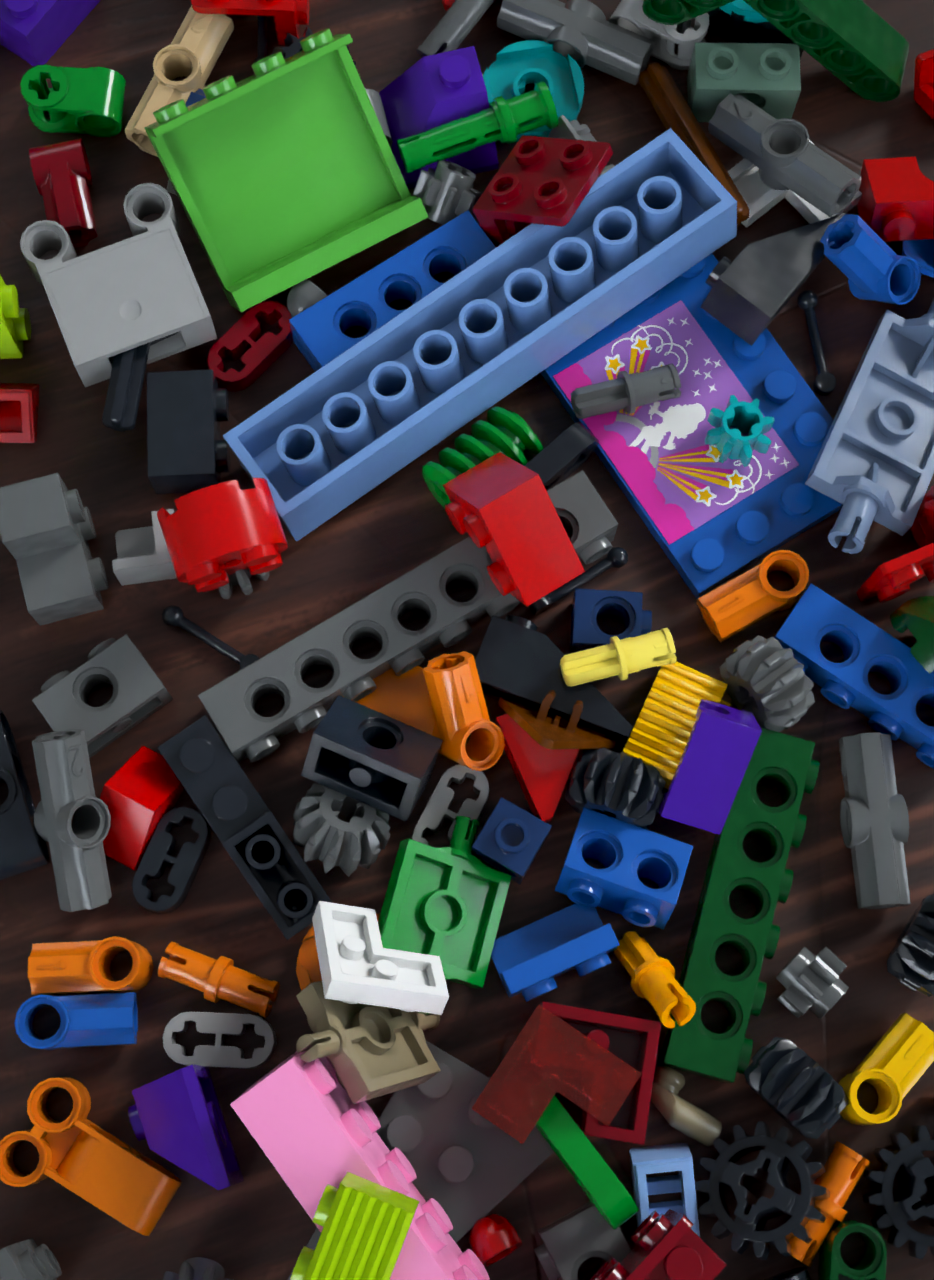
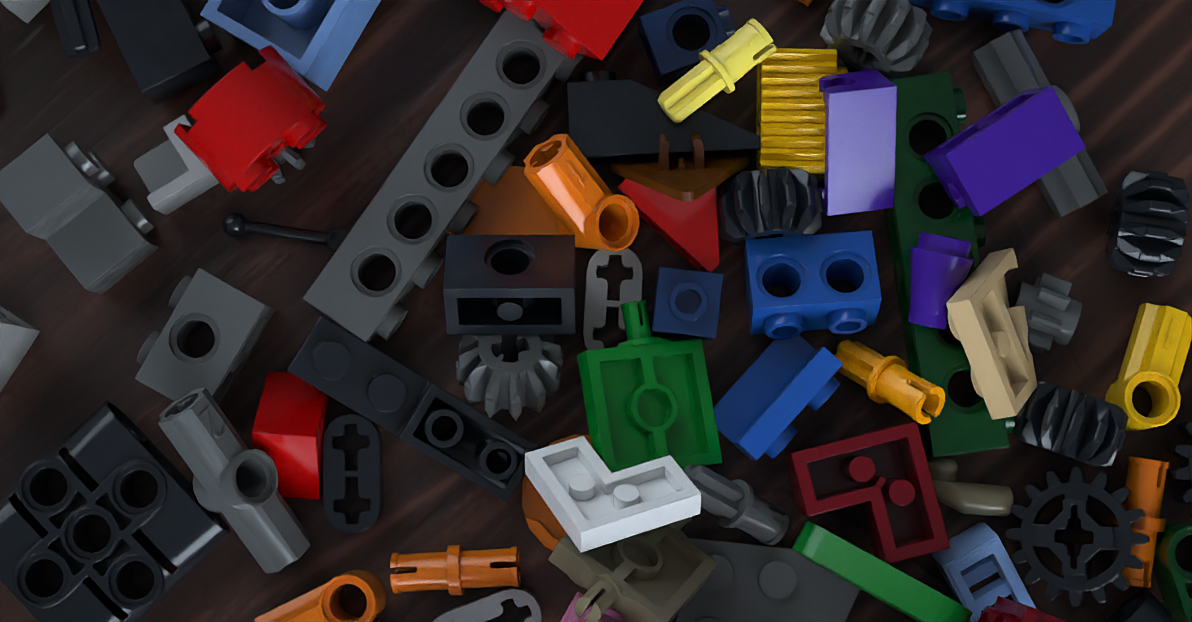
camera: 25 degrees left, 10 degrees up
(475, 1024) = (737, 505): none -> dark grey axle
(552, 1059) = (821, 509): clear red plate -> none
(730, 907) = (936, 273): none -> dark purple cone
(758, 978) = (994, 336): none -> tan wing
(833, 826) = (1005, 150): none -> dark purple hinge

